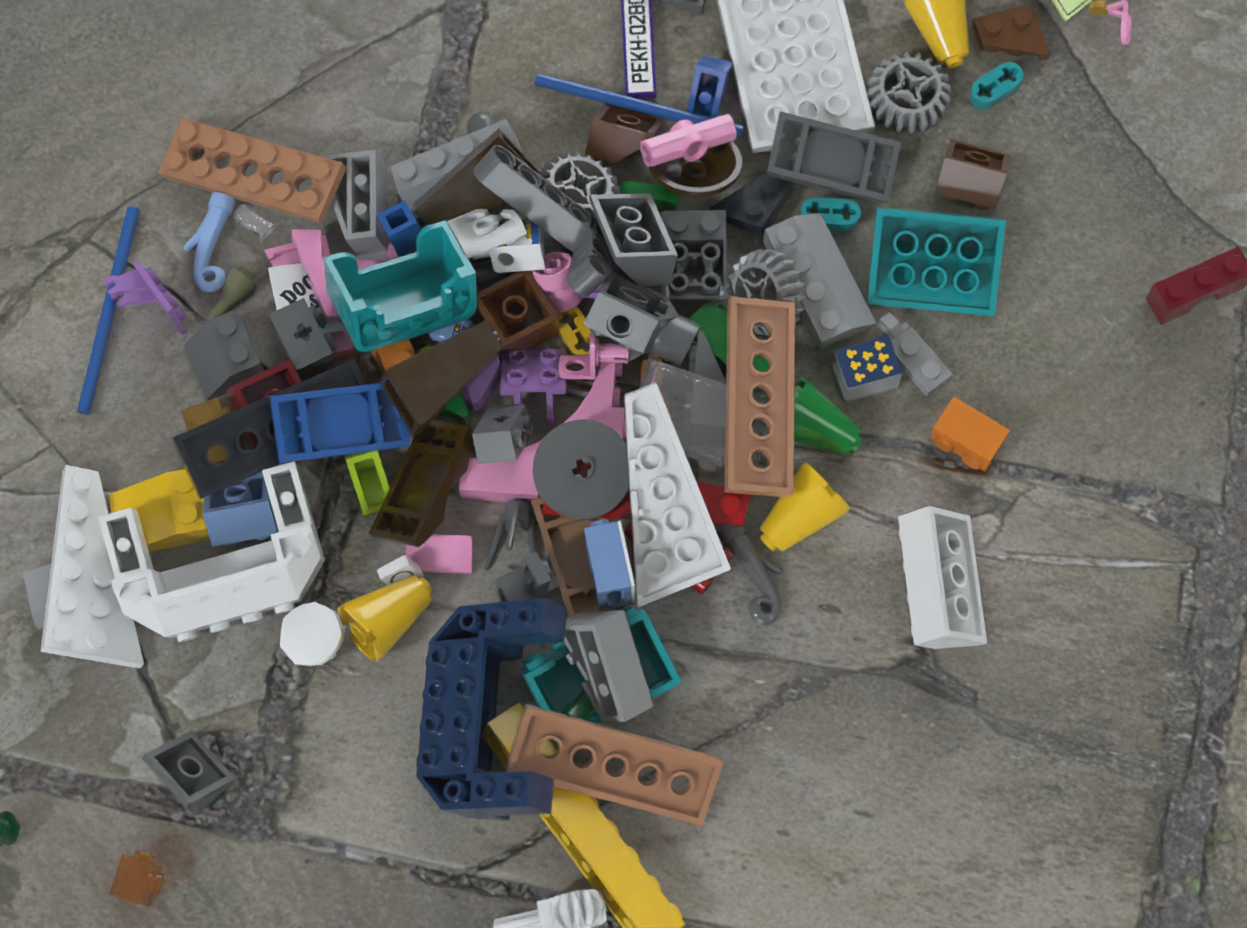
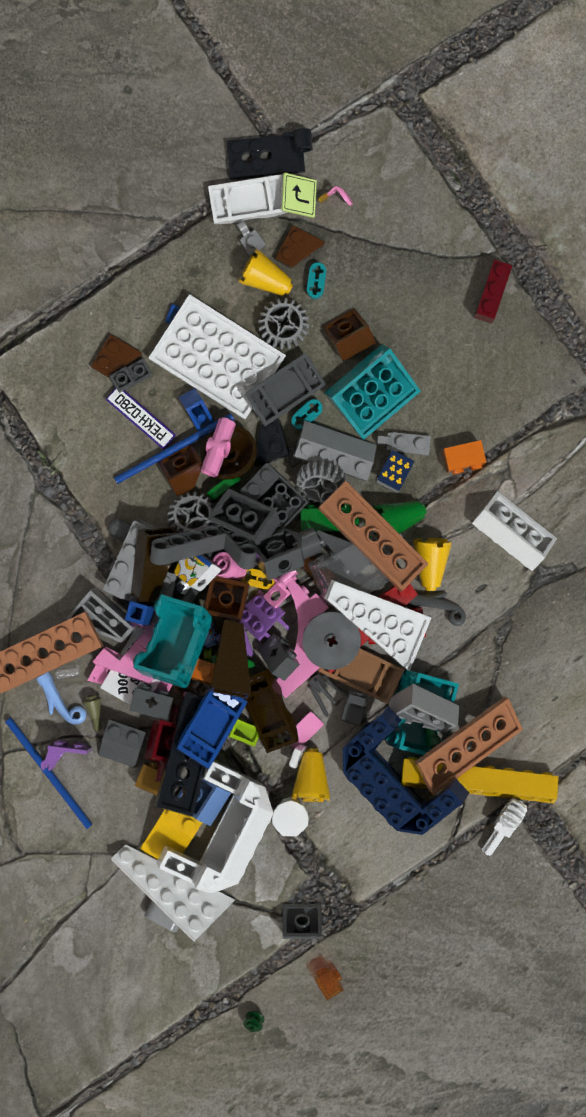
camera: 50 degrees left, 15 degrees up
(480, 232) = (181, 581): white plate -> none
(609, 564) = (383, 668): medium blue piece -> none

